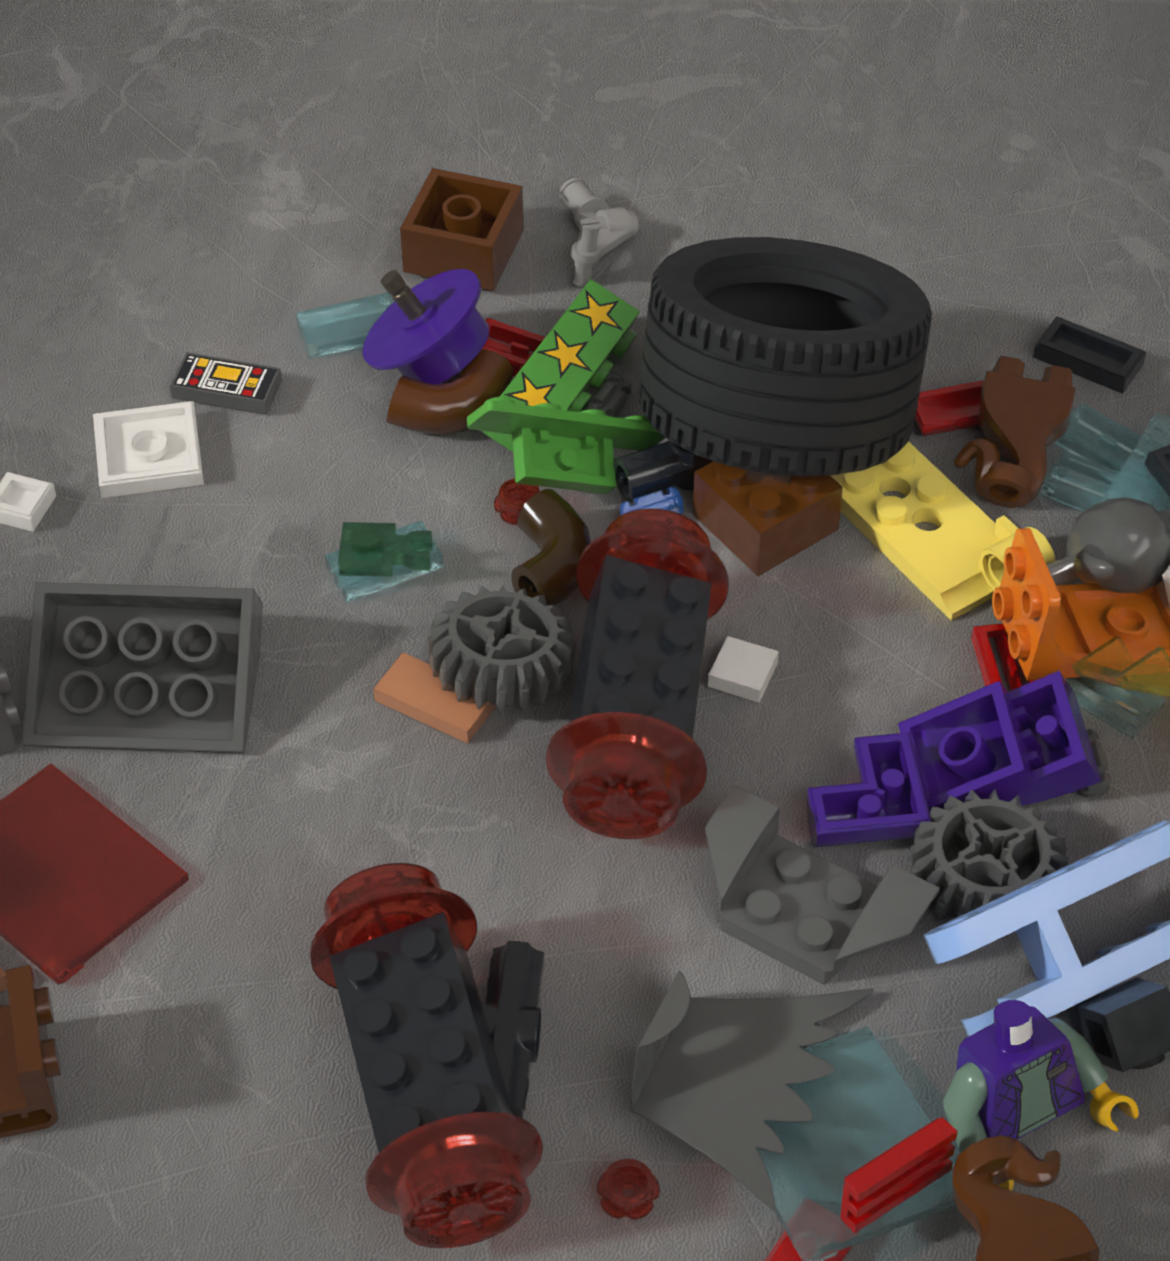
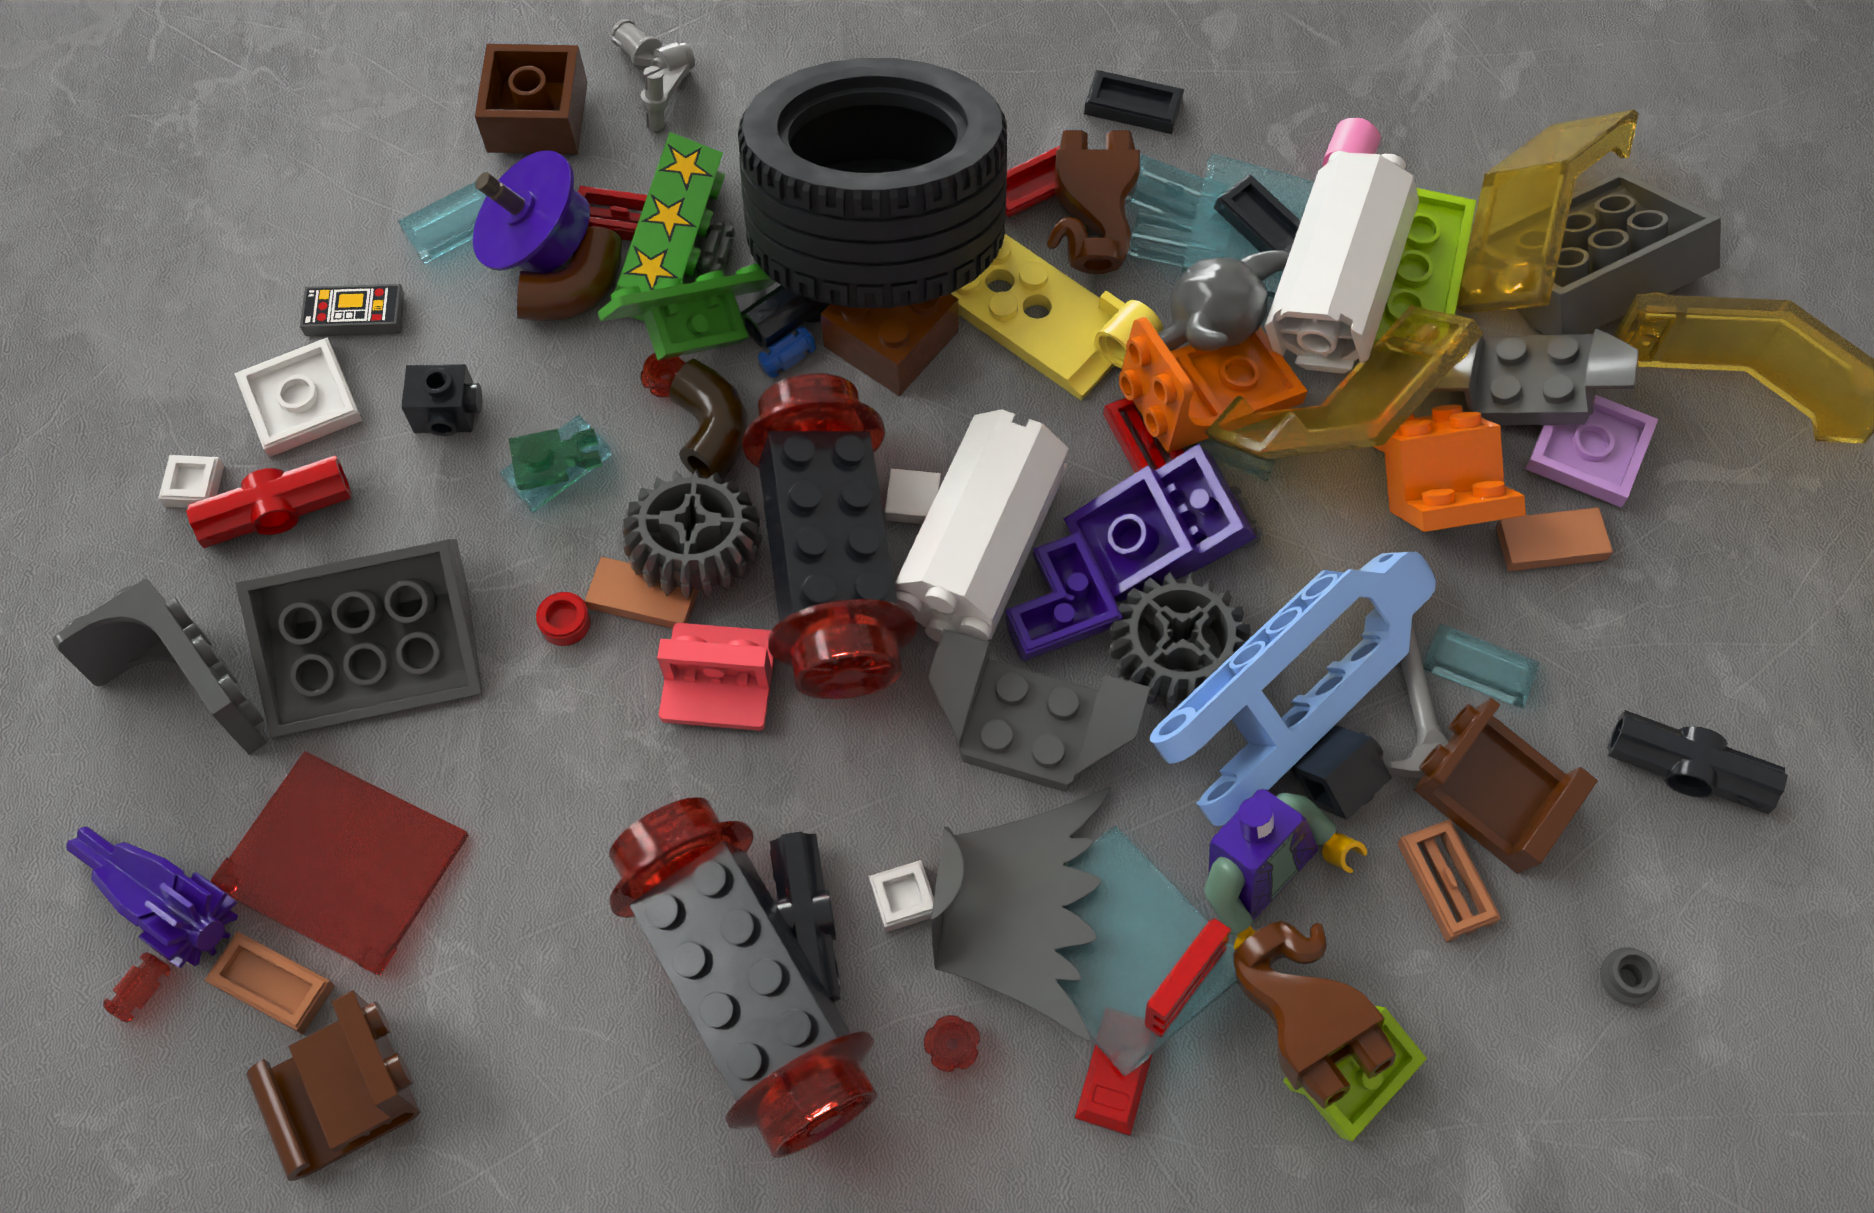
camera: 15 degrees left, 15 degrees up
(89, 532) = (268, 502): none -> red piece
(287, 476) = (440, 399): none -> black brick
(347, 702) = (563, 618): none -> red tile
(484, 787) = (715, 676): none -> coral bracket
(615, 1038) = (902, 895): none -> white tile
(807, 699) = (981, 526): none -> white brick

